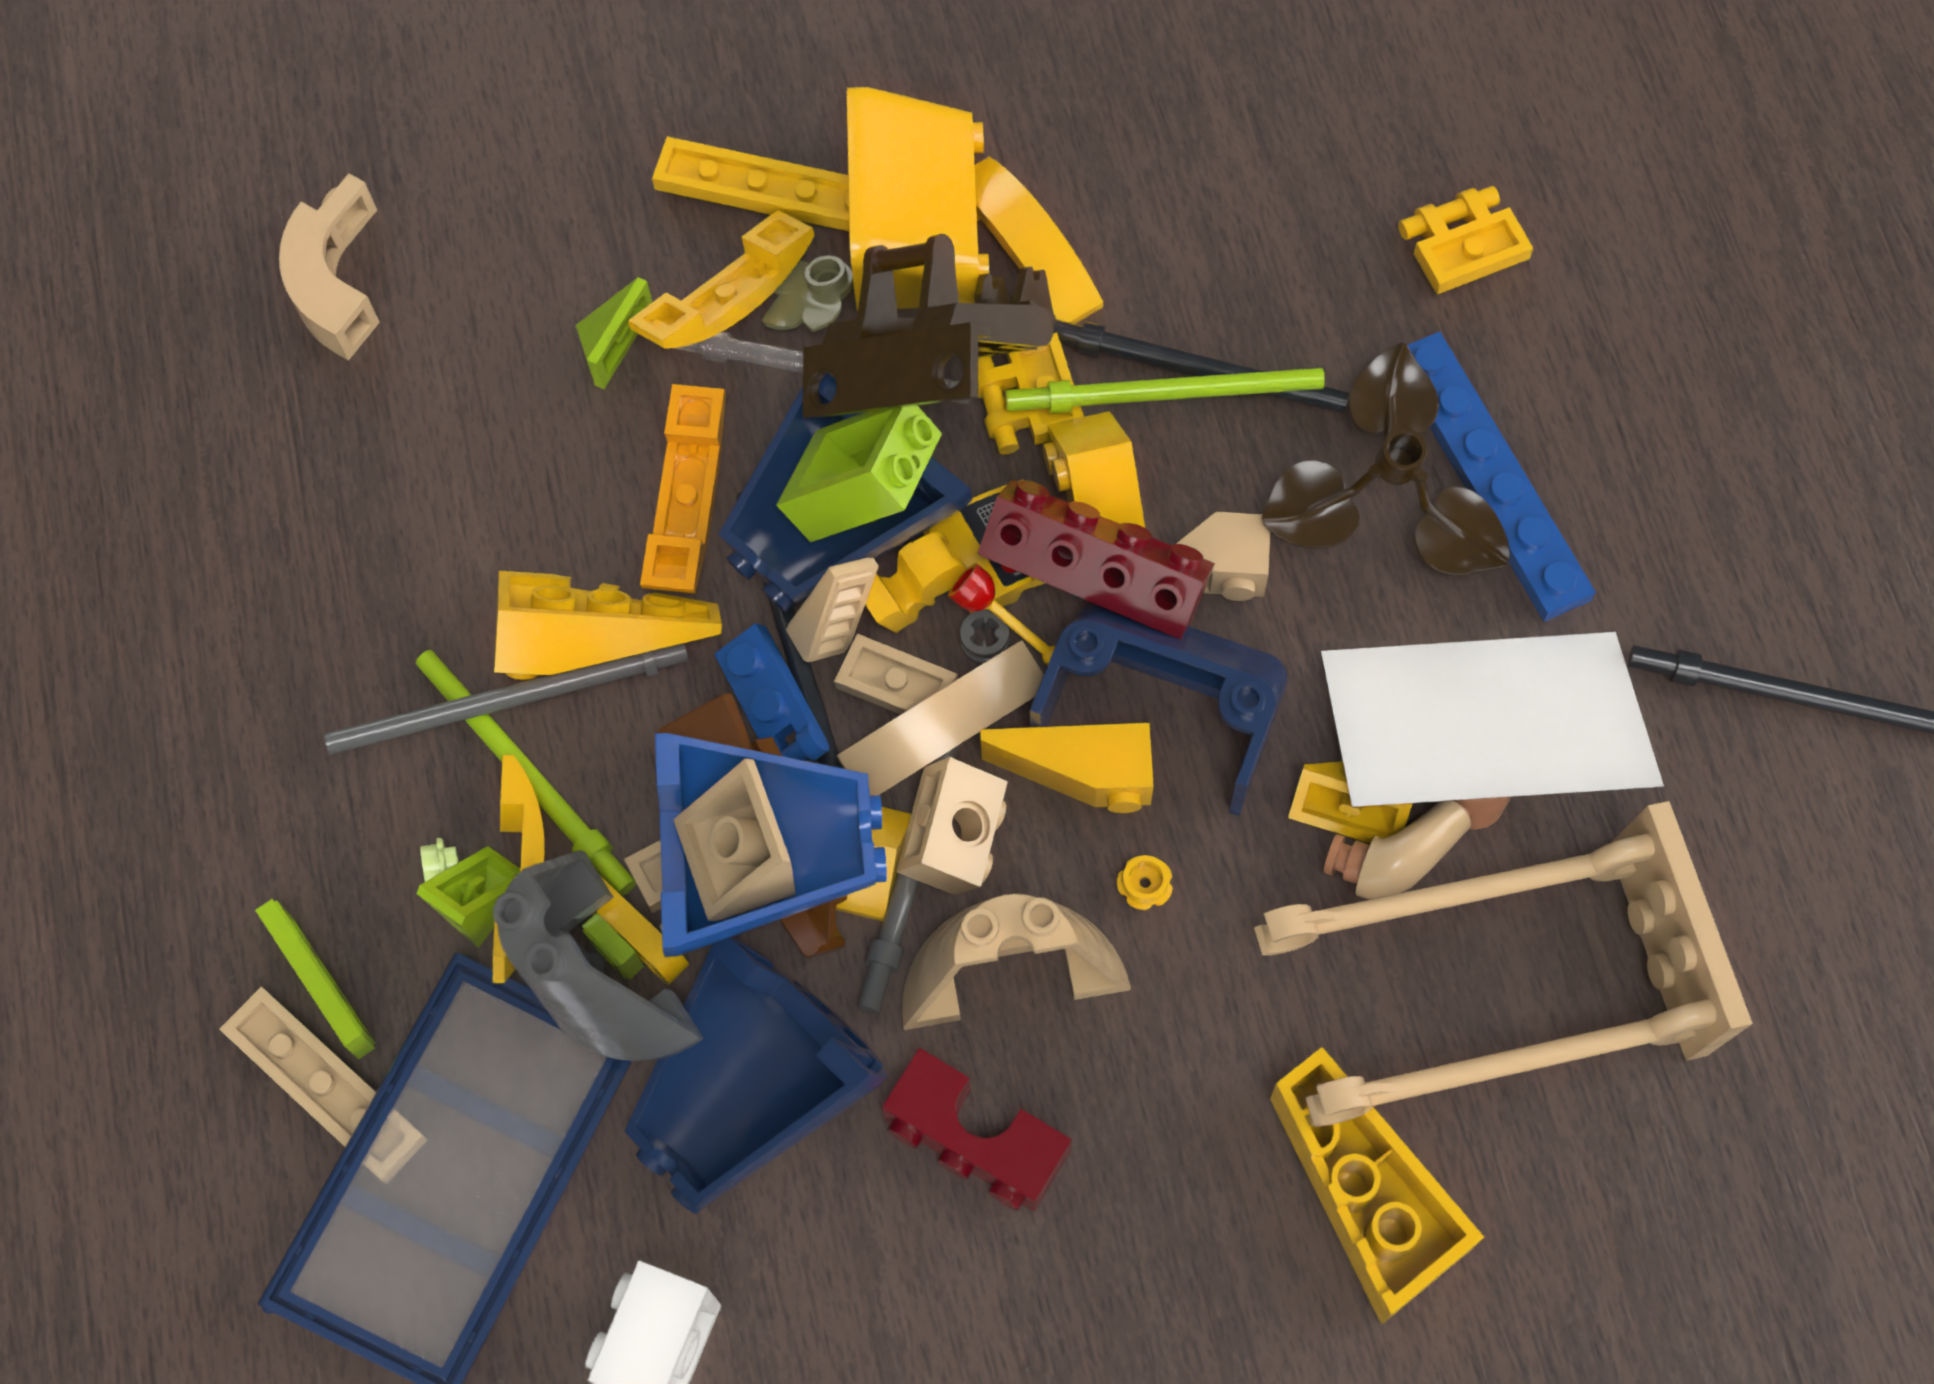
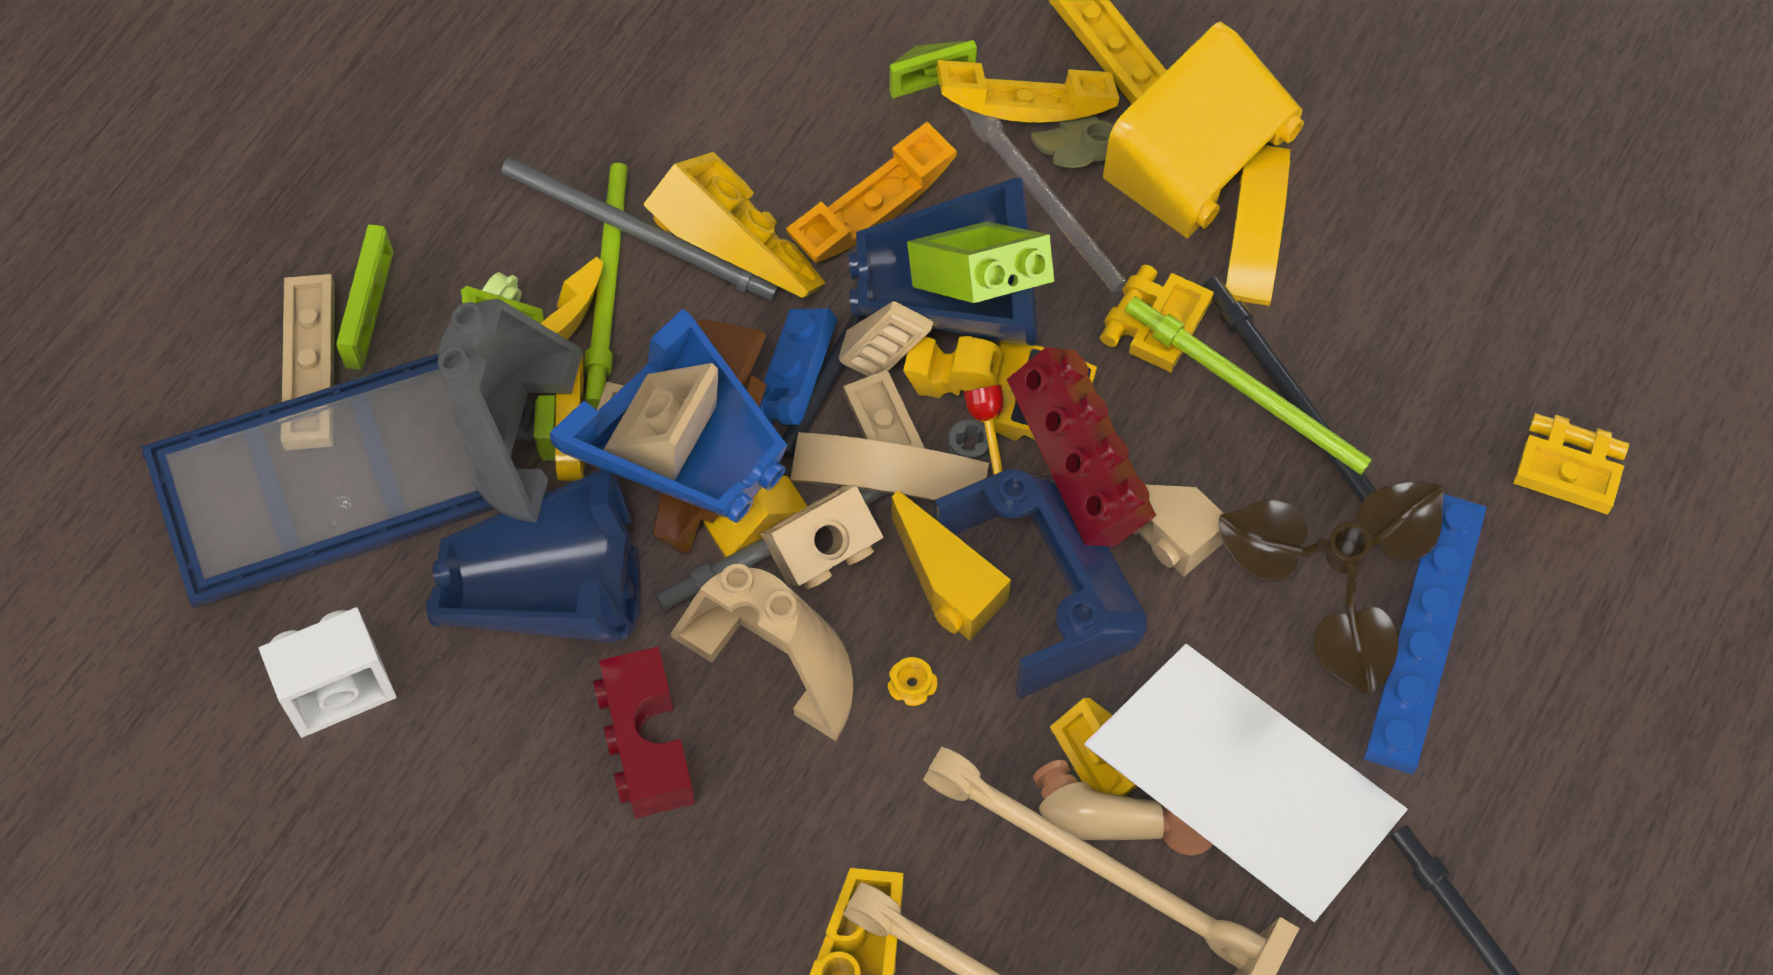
camera: 40 degrees right, 5 degrees down
(901, 361) = (1065, 194): dark brown container -> none
(1095, 466) = (1142, 394): yellow brick -> none

